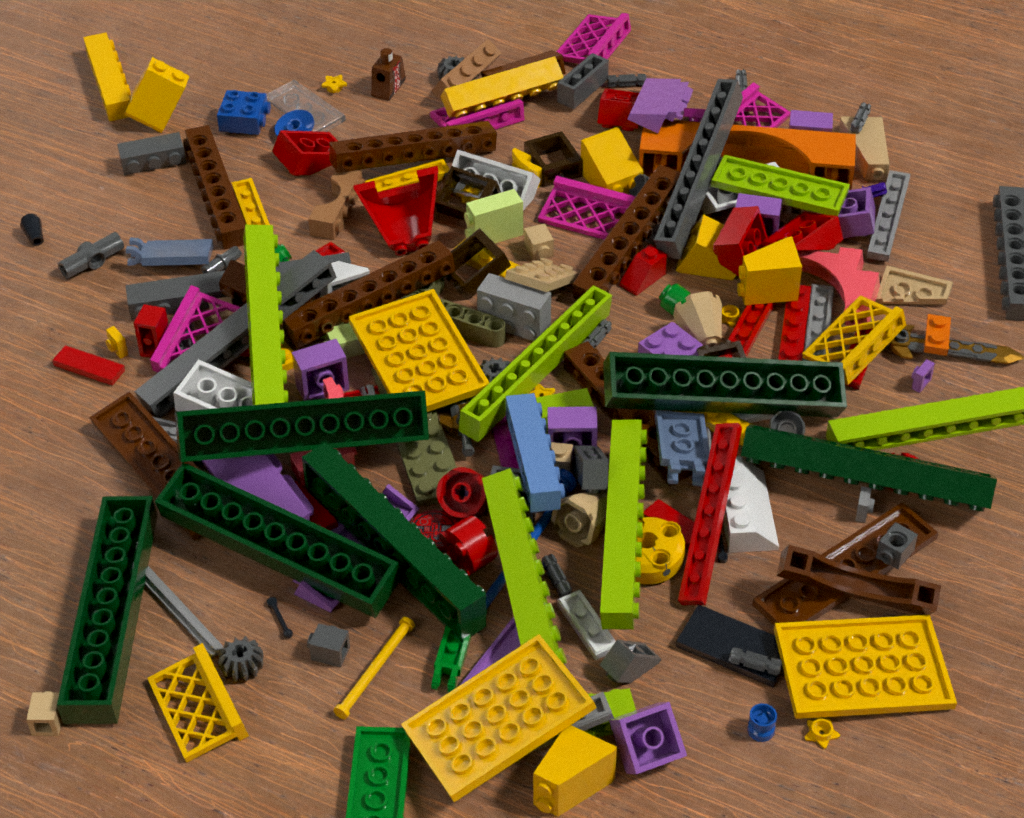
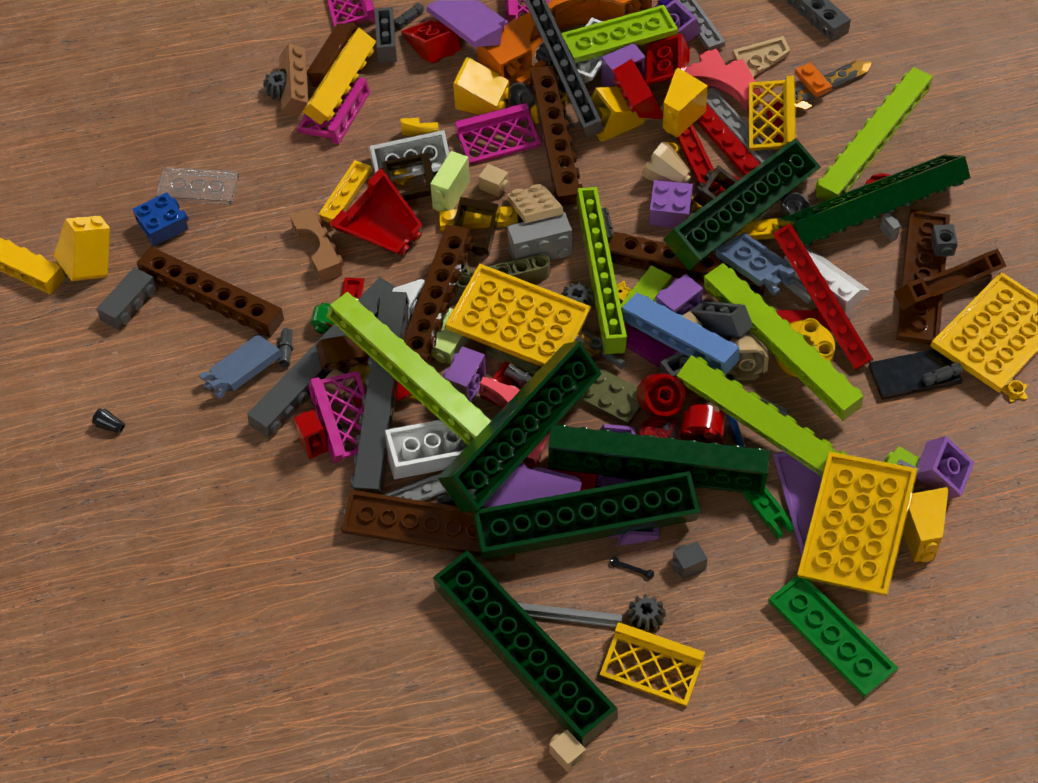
camera: 40 degrees left, 10 degrees up
(88, 365) = (283, 493): red tile -> none
(90, 255) = (181, 410): dark grey piece -> none
(116, 342) = (286, 461): yellow plate -> none
(249, 202) = (261, 290): yellow plate -> none
(295, 121) = (207, 199): blue dish -> none
(303, 151) = (247, 218): red slope -> none
(334, 84) = (194, 154): yellow plate -> none
(342, 710) = (743, 595): yellow bar -> none
(387, 75) = (235, 111): reddish brown torso -> none
(411, 146) = (326, 165): reddish brown brick -> none
(570, 167) = (438, 98): dark brown window -> none
(586, 624) = (822, 425): white tile -> none
(628, 661) = (873, 430): dark grey slope -> none
(644, 270) = (586, 154): red slope -> none
(672, 295) = (630, 163): green head -> none
(694, 114) = (507, 11): magenta plate -> none
(762, 722) = (984, 409): blue wheel -> none
(922, 375) = (831, 114): medium lavender plate -> none

